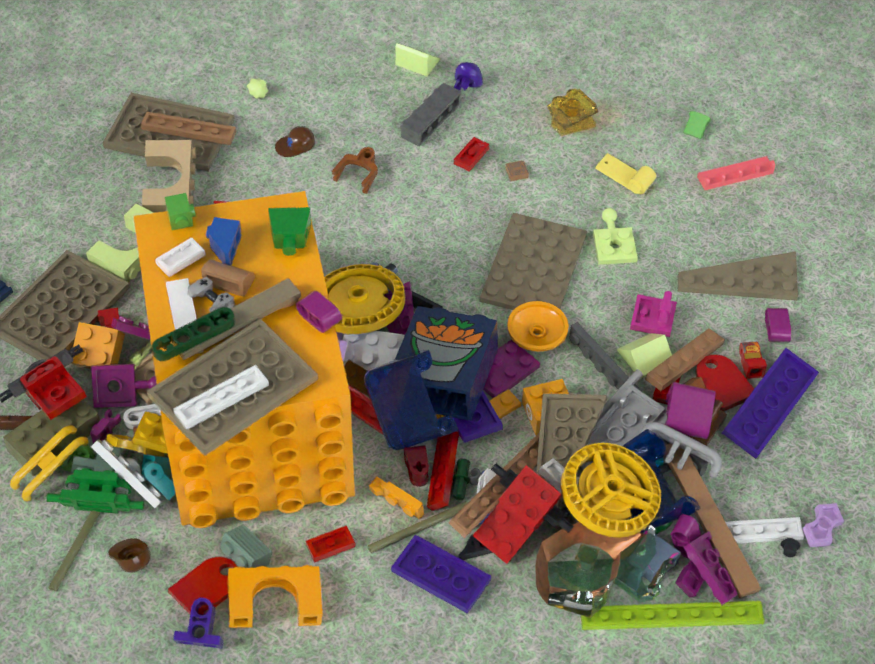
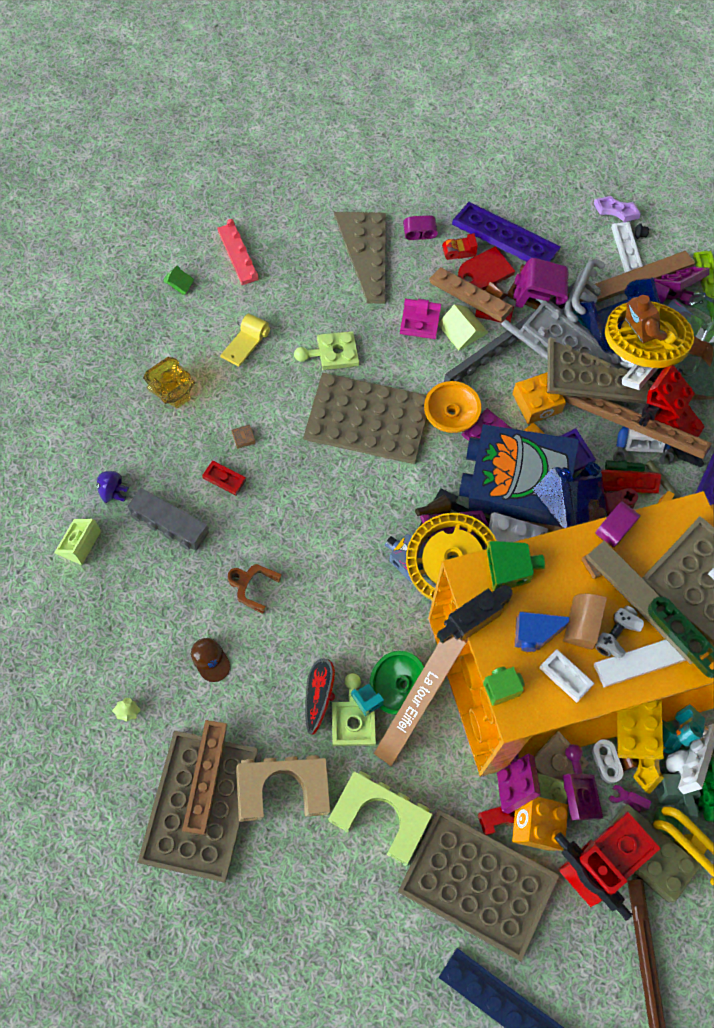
camera: 95 degrees left, 15 degrees up
(245, 197) = (475, 614): none -> black hinge
(419, 297) = (438, 506): none -> dark brown cone
(616, 462) = (645, 321): none -> dark orange torso

